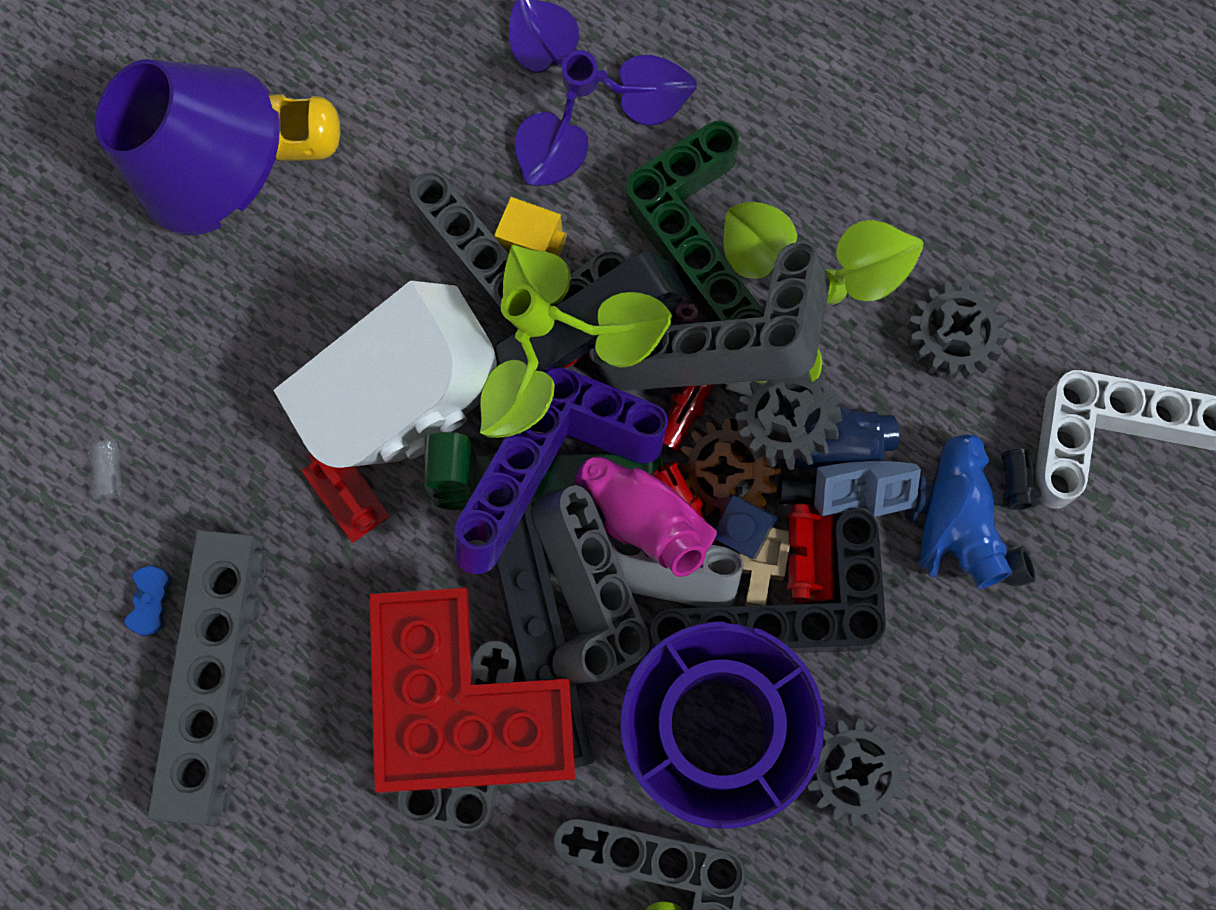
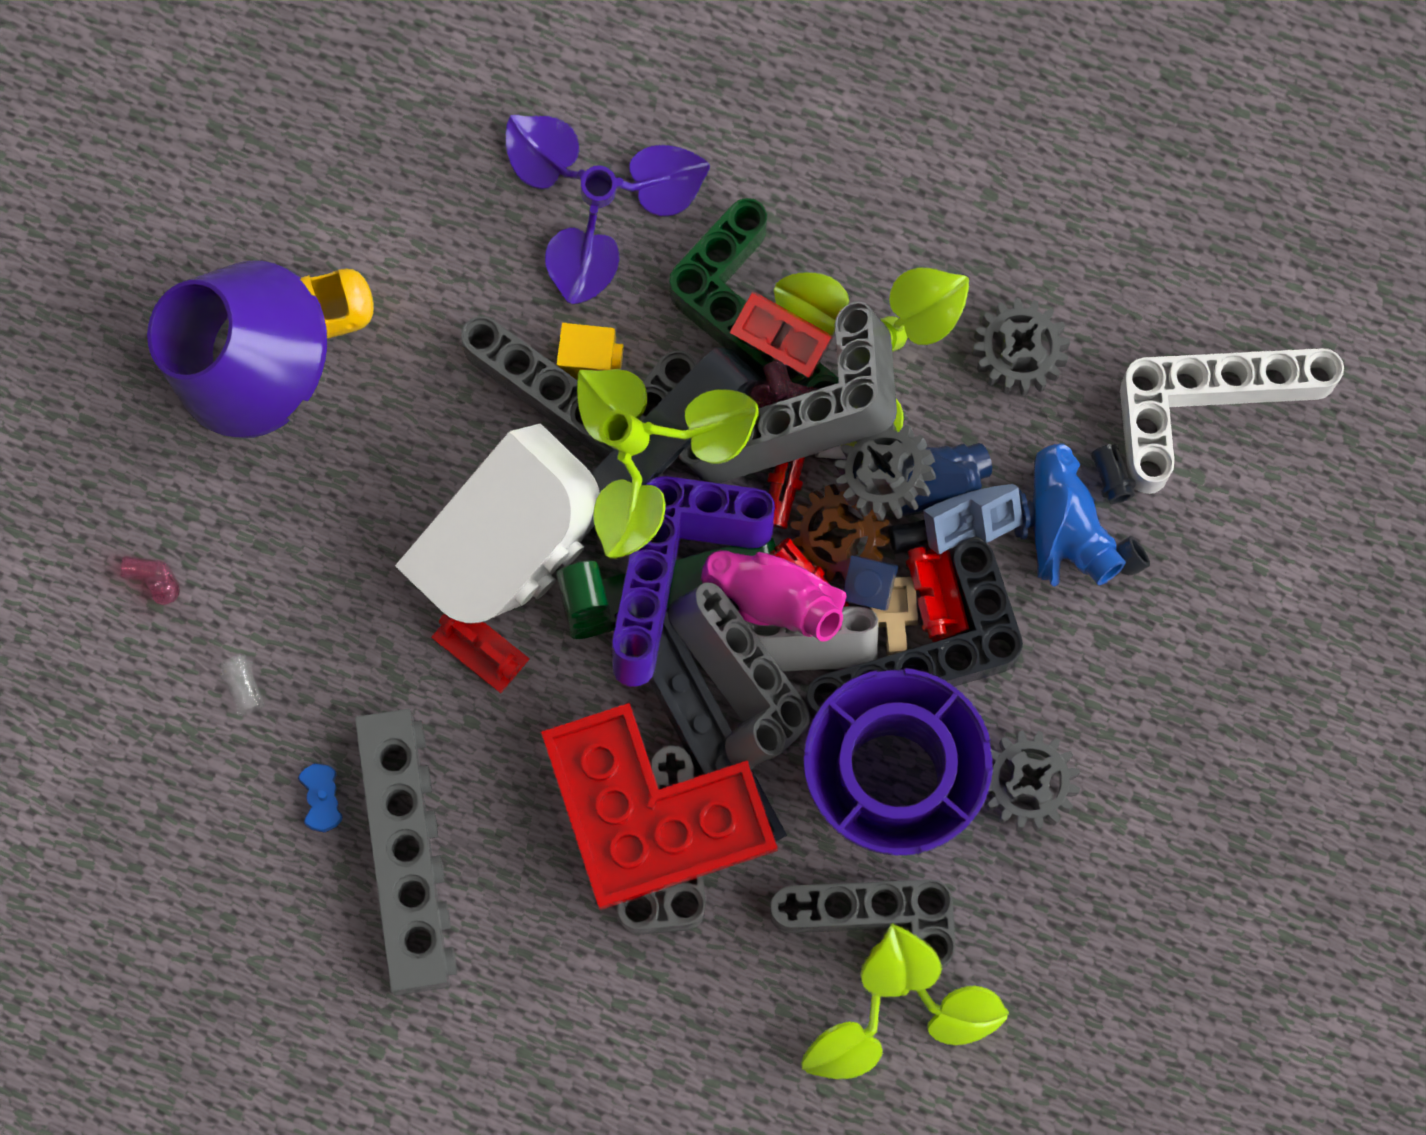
camera: 20 degrees left, 0 degrees up
(60, 343) = (156, 575): none -> clear pink arm
(707, 304) = (780, 382): none -> clear pink arm
(719, 256) = (781, 334): none -> red brick

